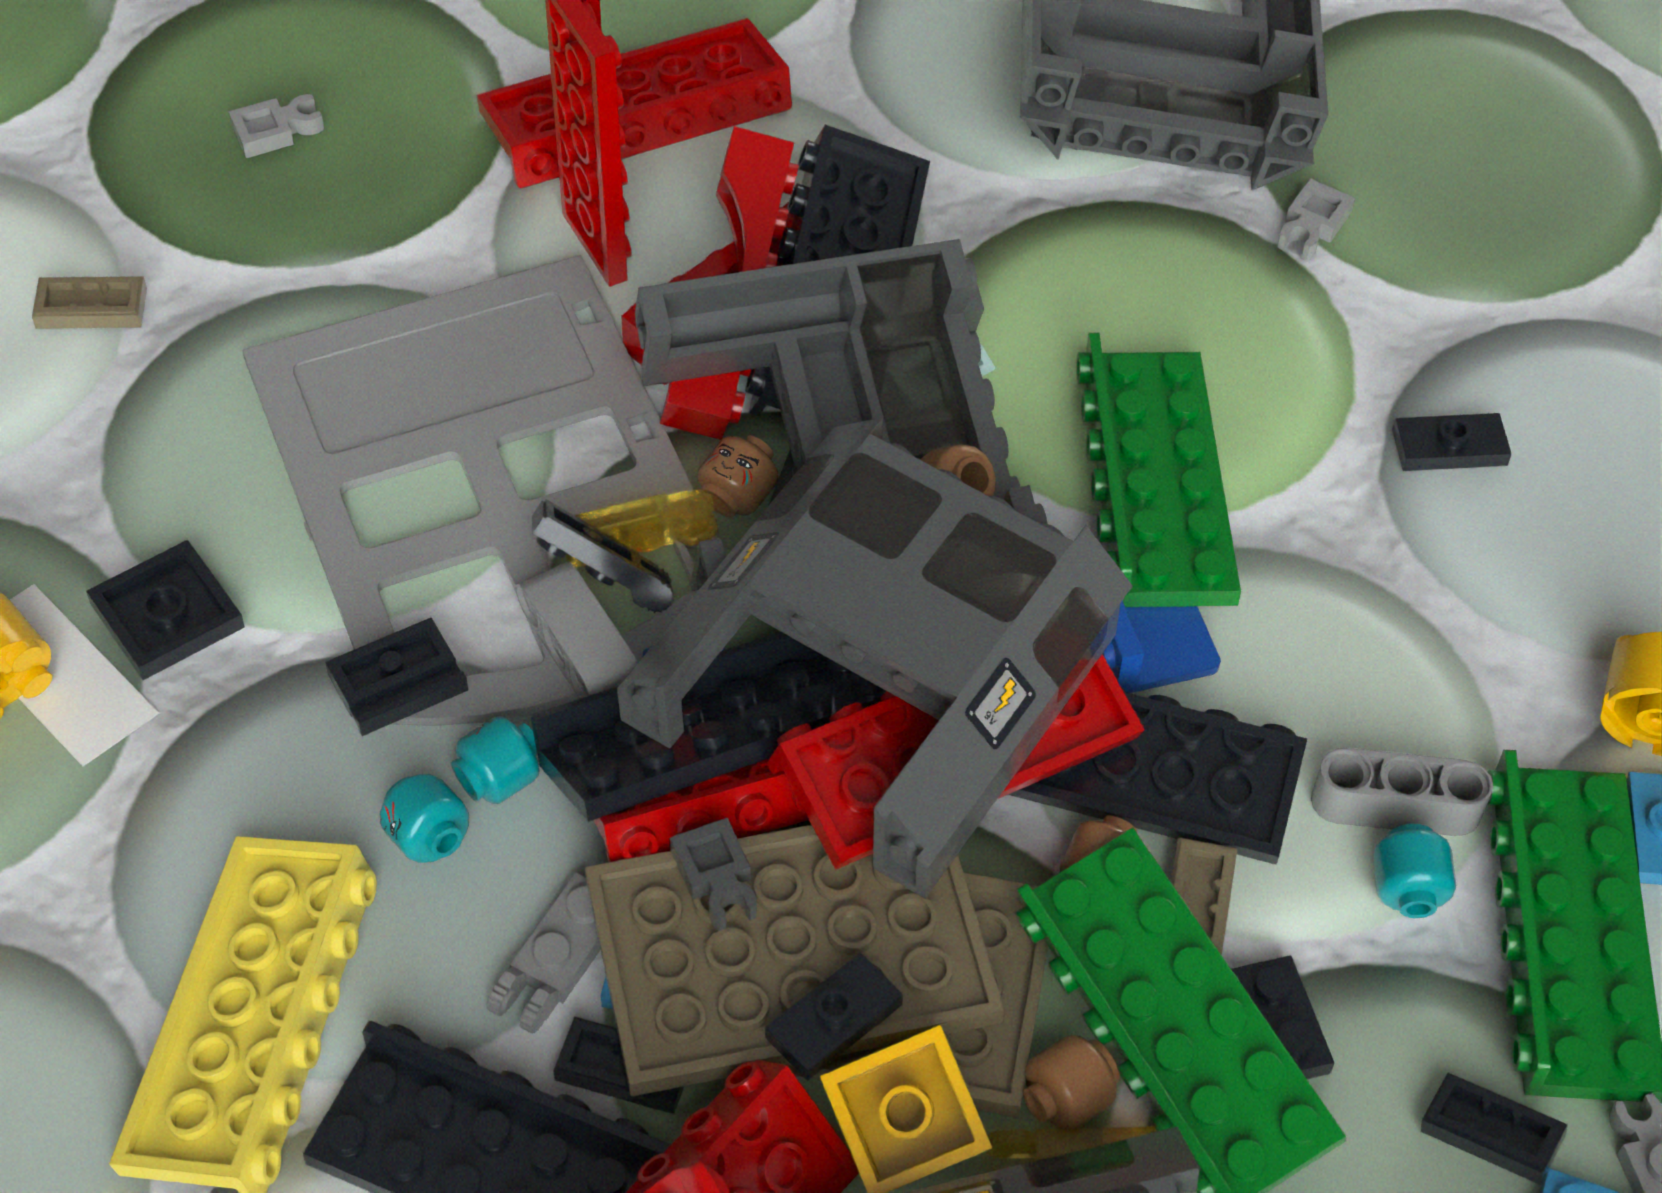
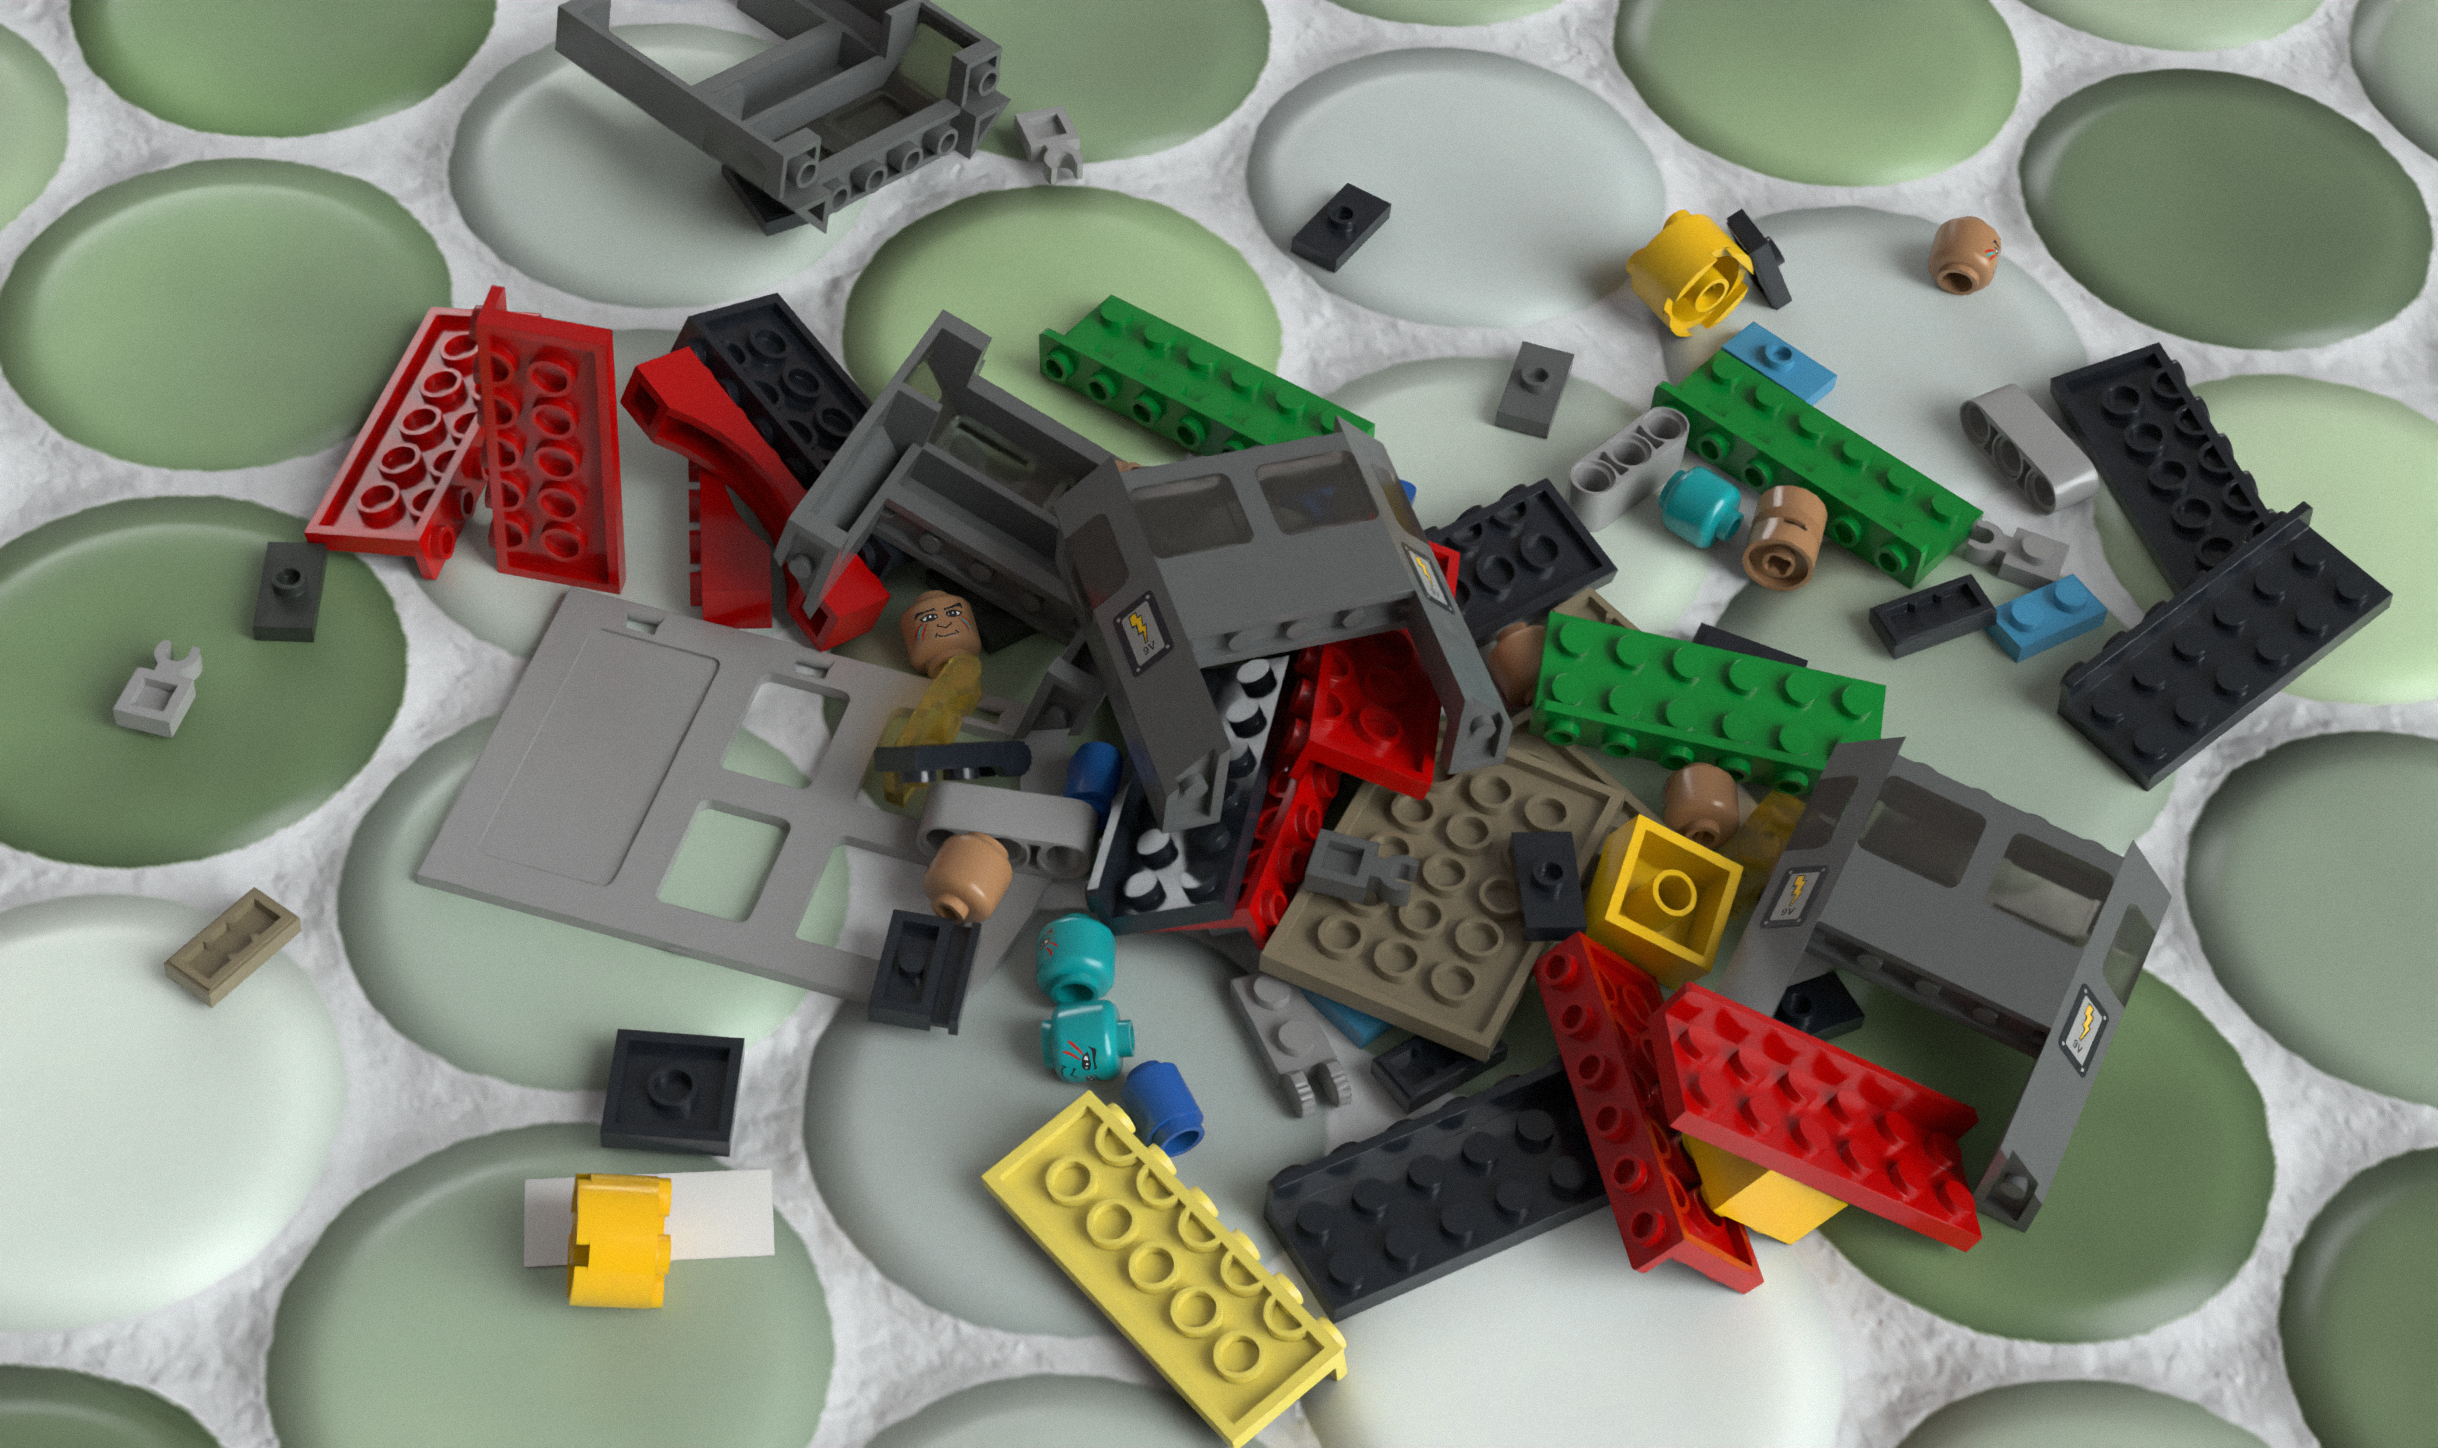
camera: 55 degrees left, 5 degrees down
(405, 909) = (1163, 1107): none -> blue brick
(428, 126) = (290, 592): none -> pearl dark grey plate
(500, 640) = (968, 877): none -> medium nougat head
(1427, 676) = (1534, 389): none -> dark grey plate
(1449, 954) = (1784, 538): none -> medium nougat wheel

